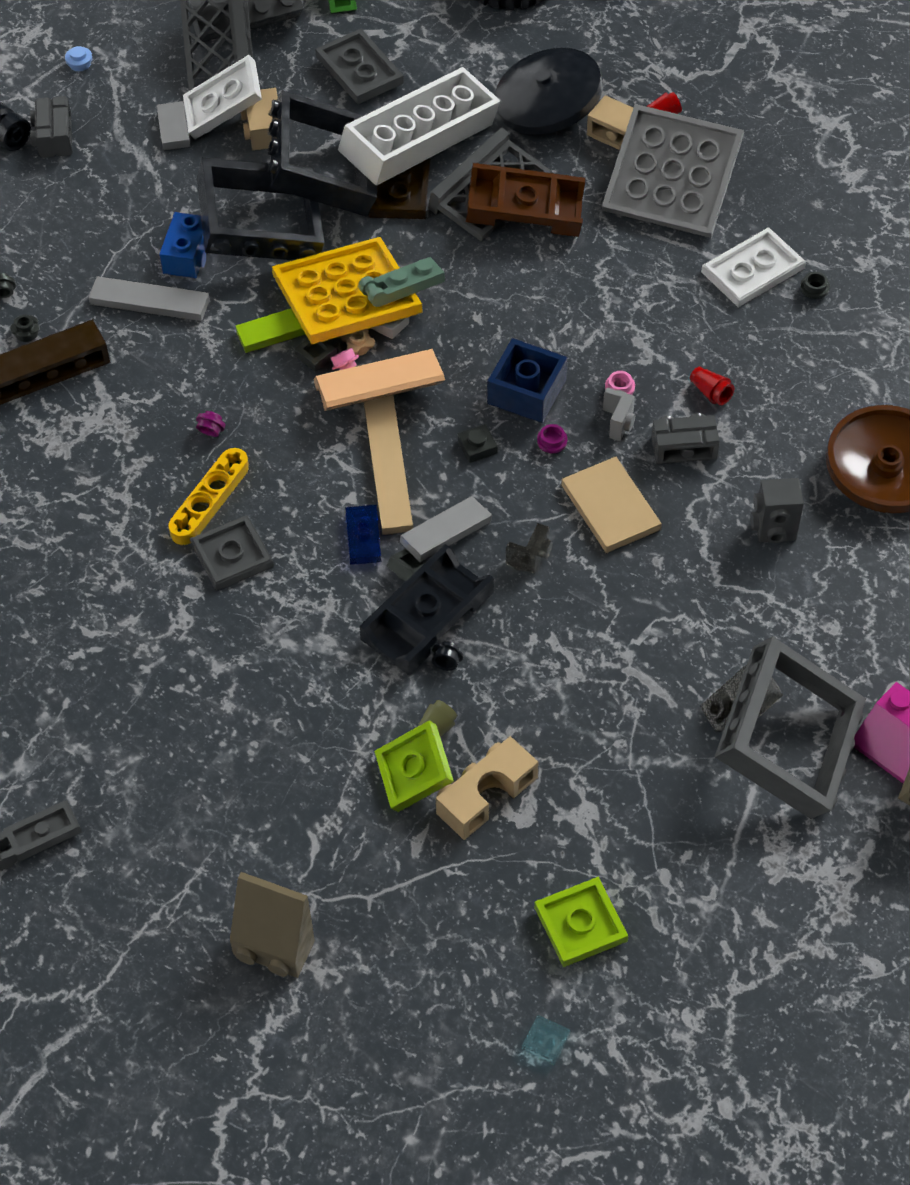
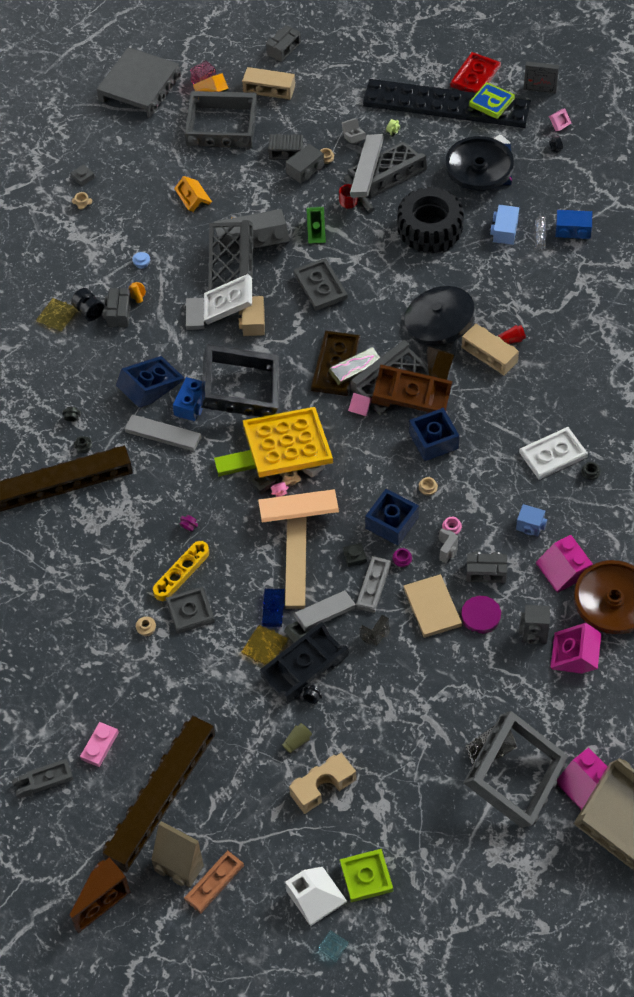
camera: 10 degrees right, 0 degrees up
(79, 102) = (137, 291): none -> light orange plate
(114, 226) = (148, 380): none -> dark blue slope
(116, 773) = (99, 744): none -> bright pink plate
(155, 1001) = (100, 893): none -> reddish brown slope
(165, 591) = (145, 631): none -> tan plate
(224, 838) = (159, 793): none -> dark brown brick
(305, 183) = (275, 369): black window -> none
(335, 963) = (214, 882): none -> nougat tile
(357, 592) = (264, 645): none -> clear yellow piece
(402, 282) = (322, 441): sand green plate -> none
(413, 766) = (279, 764): lime plate -> none
(418, 125) = (350, 334): white brick -> none
(429, 173) = (353, 366): none -> tile
(448, 227) = (360, 404): none -> bright pink tile
(503, 961) = (314, 894): none -> white slope
(514, 483) = (373, 584): none -> light grey tile
(558, 154) = (439, 362): none -> dark brown slope
(570, 256) = (434, 434): none -> dark blue brick
(573, 332) = (428, 486): none -> tan plate
(673, 170) = (510, 381): light grey plate -> none
(688, 508) = (481, 614): none -> magenta tile
(712, 385) = (511, 533): red cone -> none
(741, 363) = (531, 520): none -> medium blue brick
(802, 419) = (563, 563): none -> dark pink slope
(845, 541) = (576, 649): none -> dark pink slope

